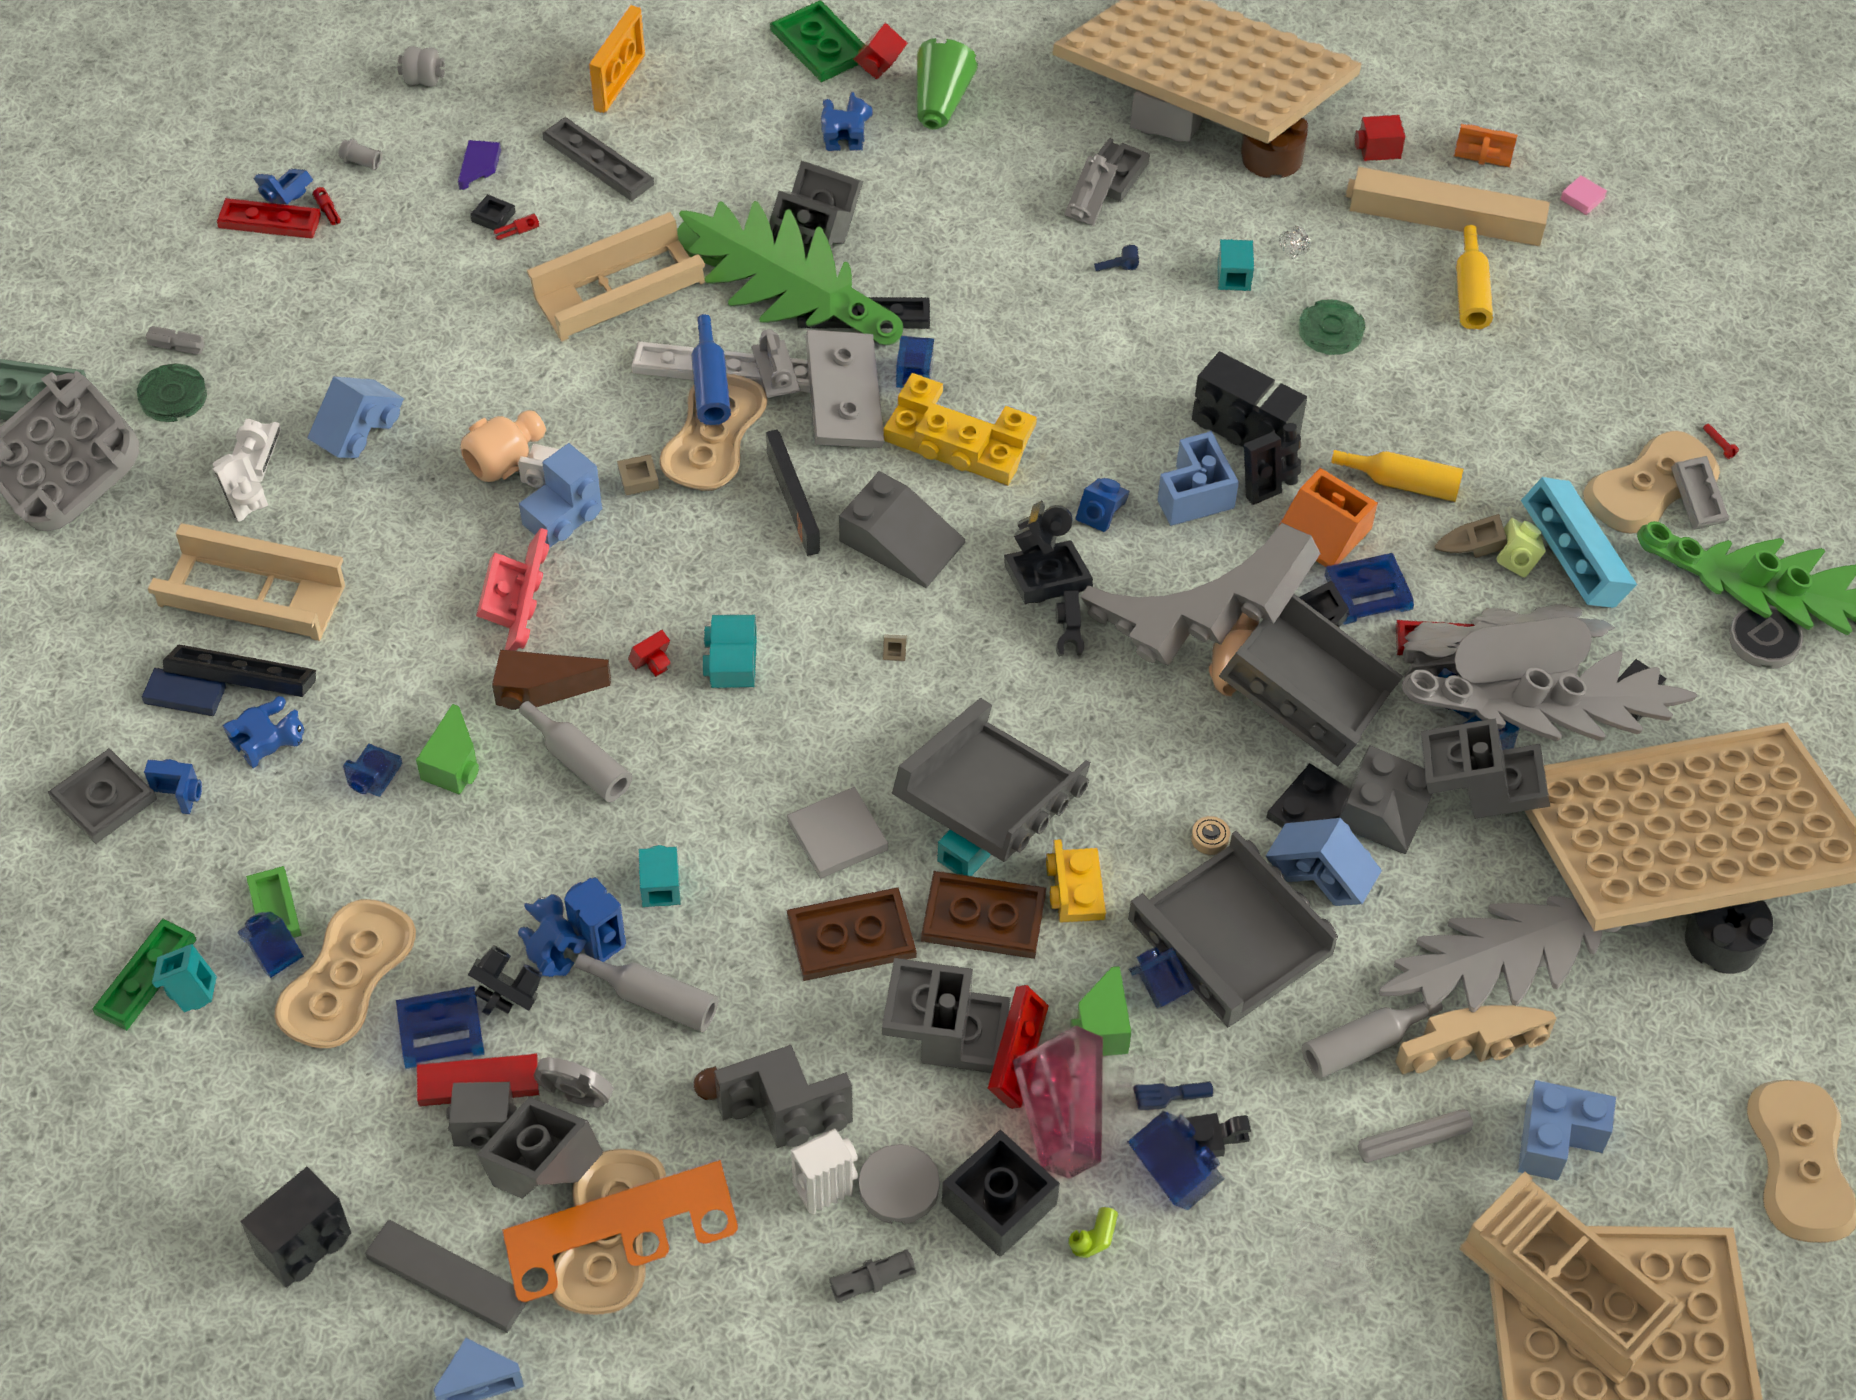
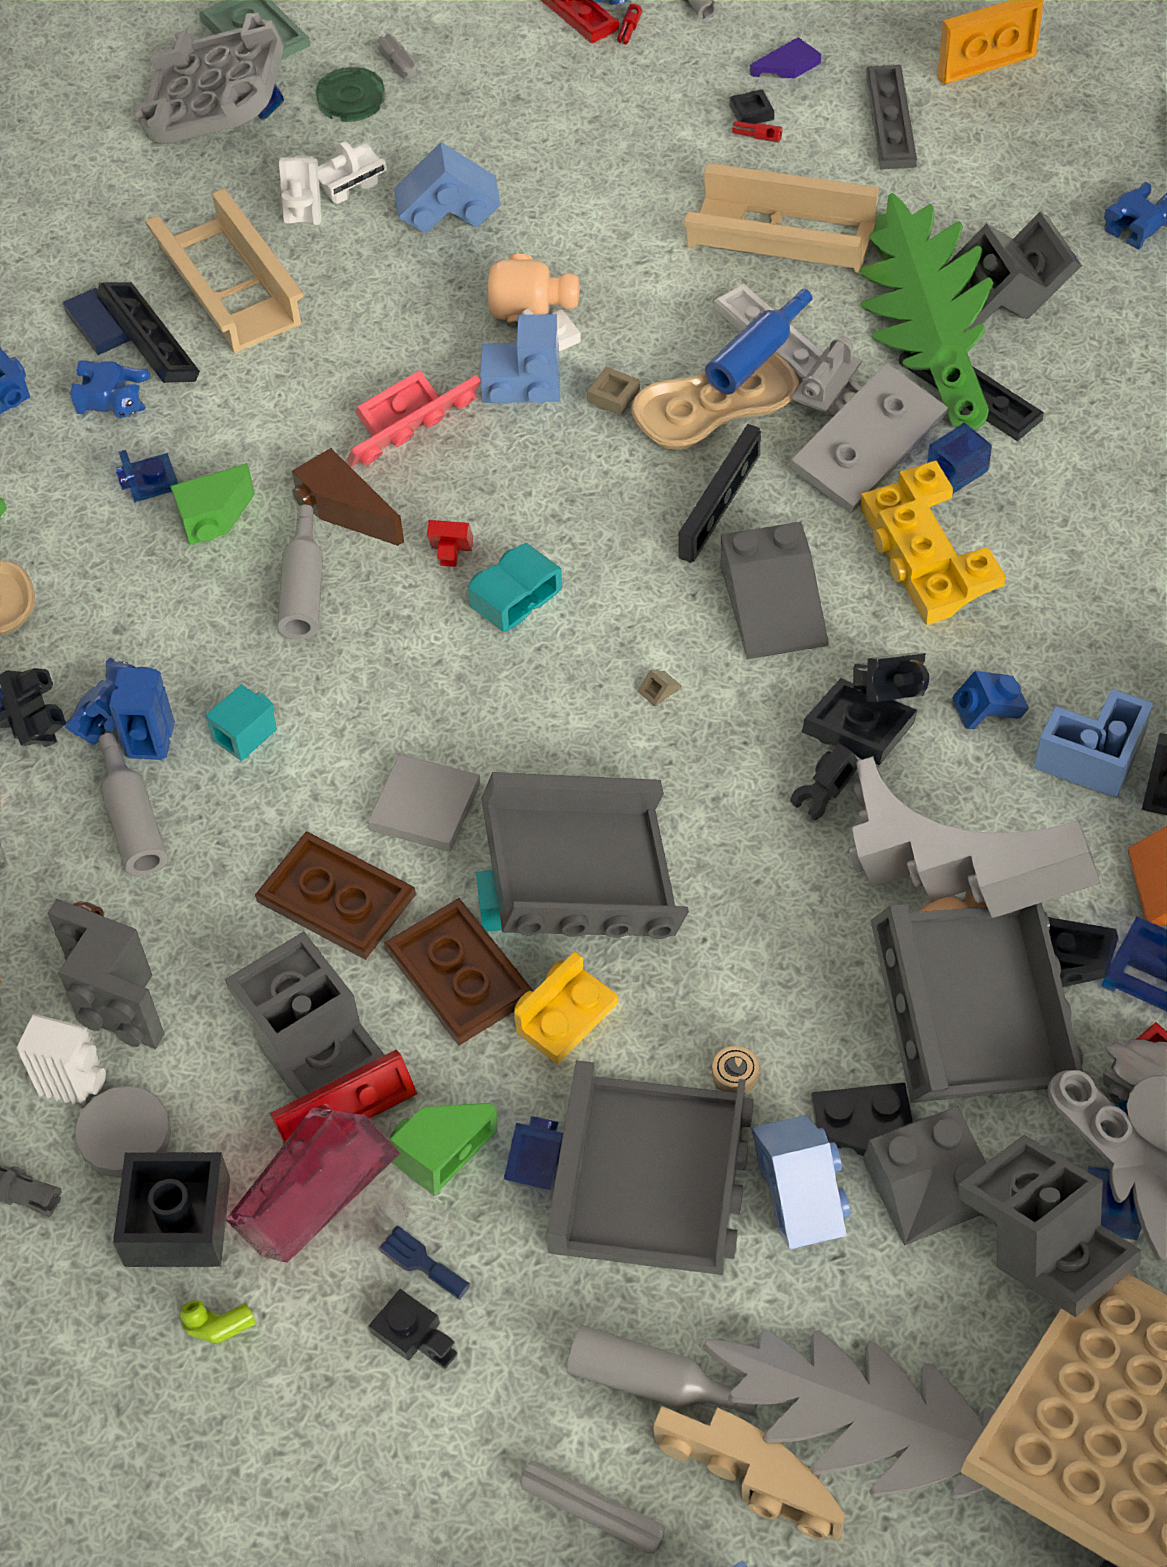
camera: 50 degrees right, 0 degrees up
(1176, 1159) = (345, 1320): clear blue brick -> none

